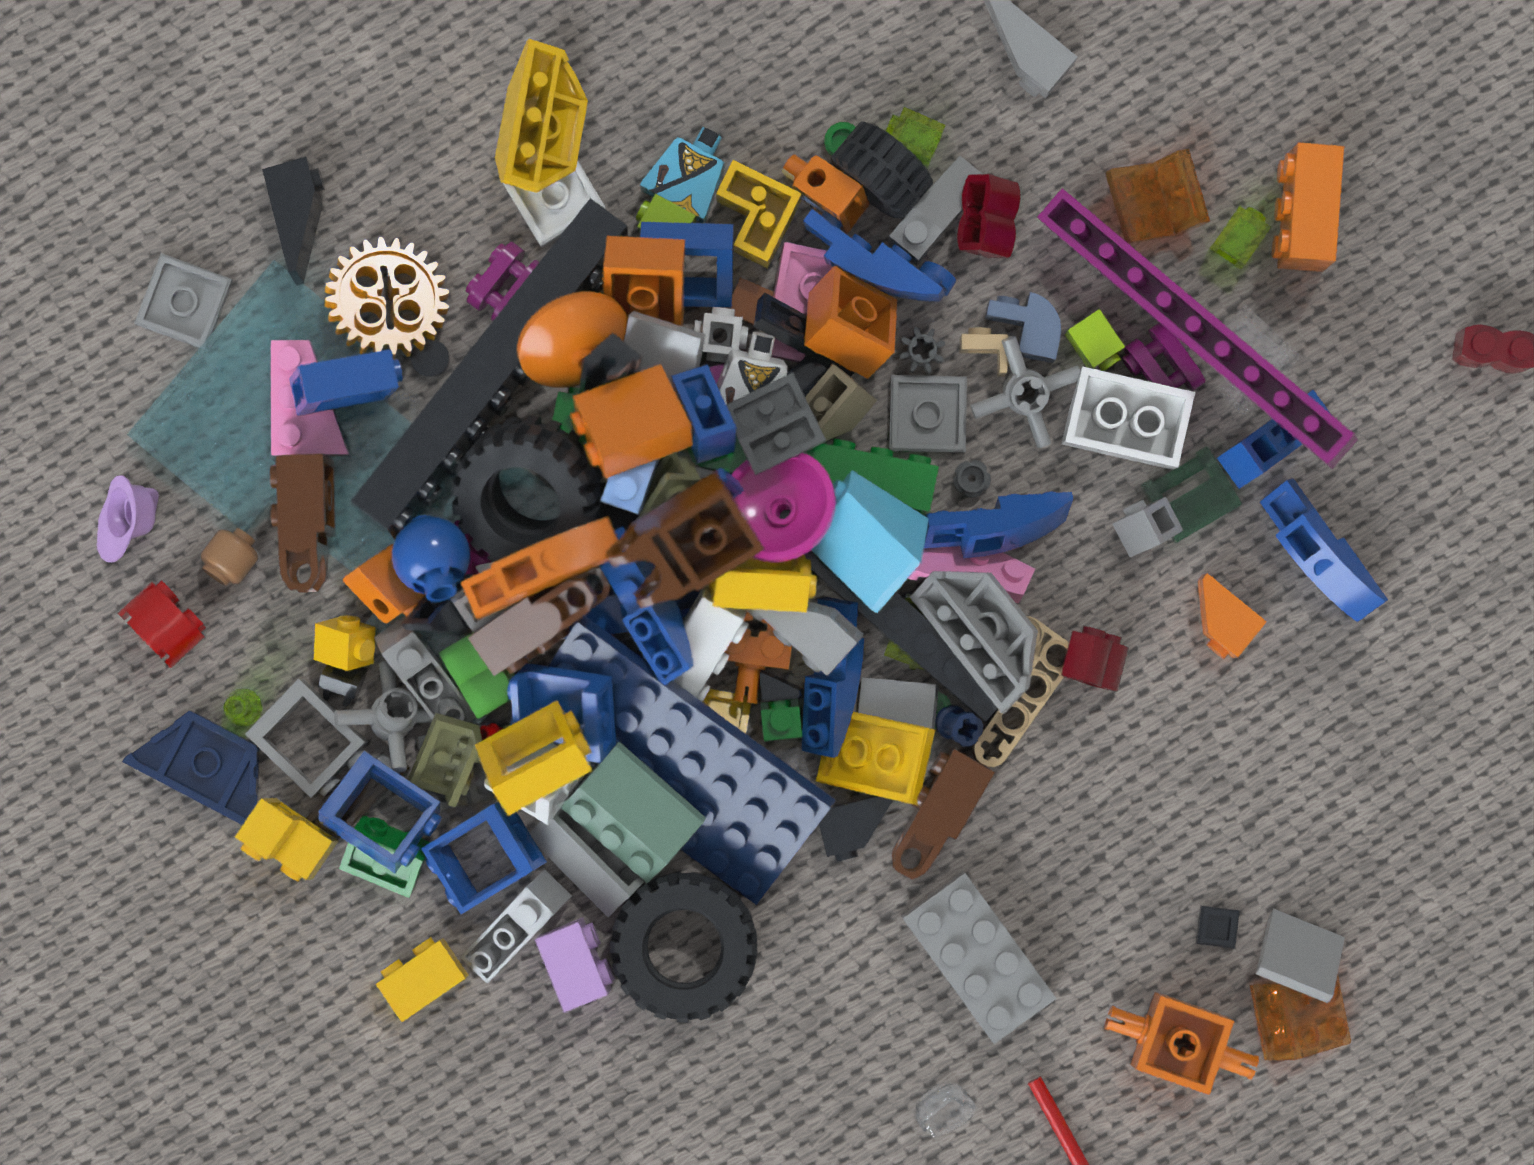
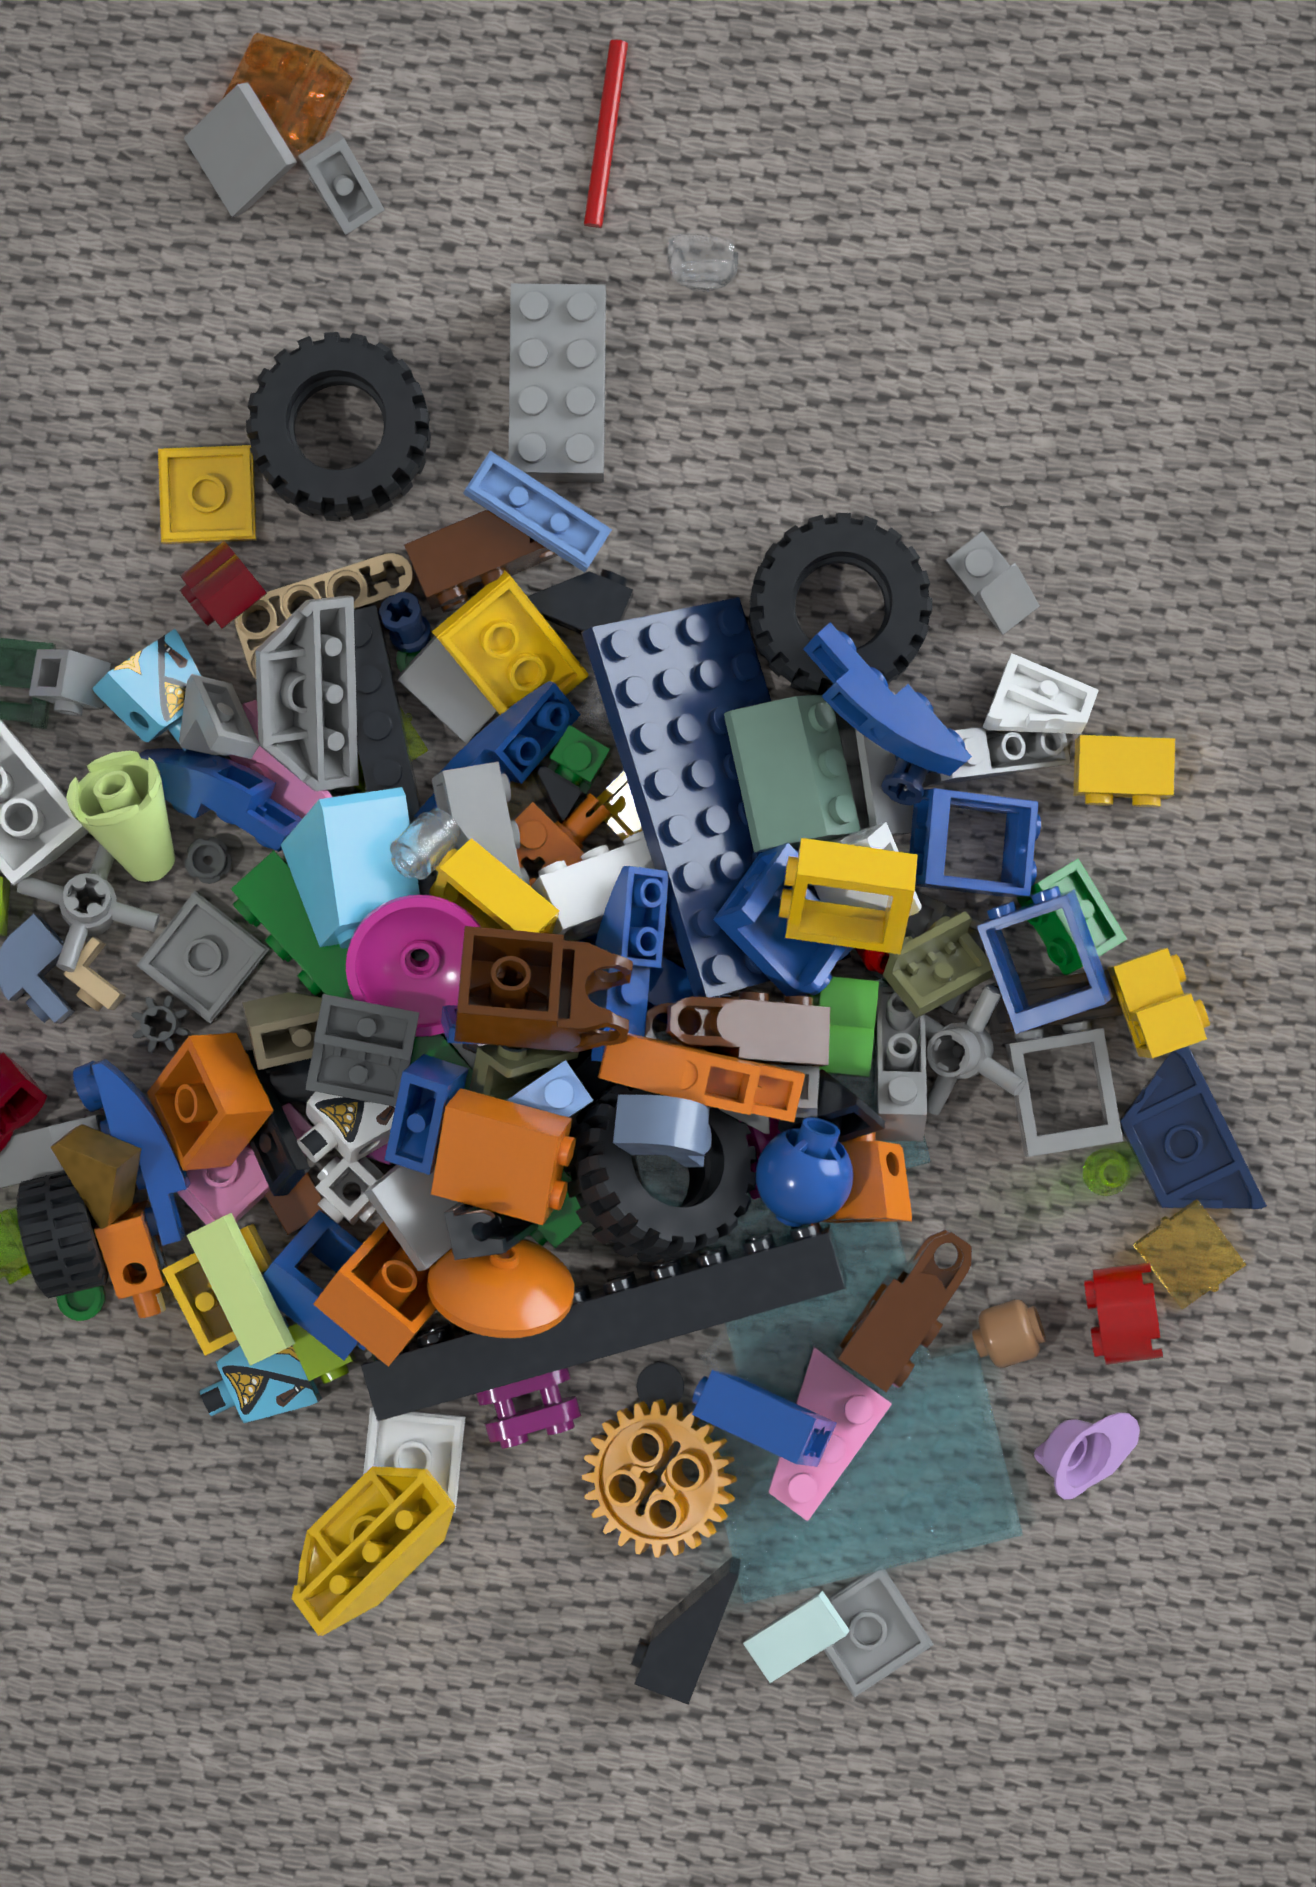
camera: 150 degrees left, 0 degrees up
(150, 694) = (1189, 1254): none -> clear yellow piece
(225, 263) = (796, 1636): none -> light aqua tile
(342, 682) = (985, 1125): black tile -> none
(344, 642) = (956, 1158): yellow brick -> none
(509, 982) = (1039, 700): none -> white wing
(541, 514) = (663, 1127): none -> sand blue brick
(553, 876) = (905, 774): none -> dark blue bush
(575, 964) = (962, 667): lavender brick -> none
(589, 893) = (896, 722): none -> slope
(597, 1038) = (993, 582): none -> light grey slope
(740, 217) = (240, 1289): none -> yellowish green tile
(833, 586) = (424, 844): none -> clear brick
(887, 225) = (100, 1170): none -> pearl gold slope
(924, 858) = (537, 511): none -> medium blue tile
(1032, 569) = (215, 720): none -> light grey slope
(1045, 466) = (126, 812): none -> yellowish green cone
(1084, 561) = (150, 687): none -> medium azure torso
(1149, 832) = (324, 365): none -> black tyre
(1151, 714) = (207, 494): none -> yellow tile
(1191, 1066) = (431, 124): orange brick -> none
(1217, 927) = (300, 240): black tile -> none
(1218, 983) = (341, 182): none -> light grey slope
(1226, 619) = (62, 532): orange slope -> none

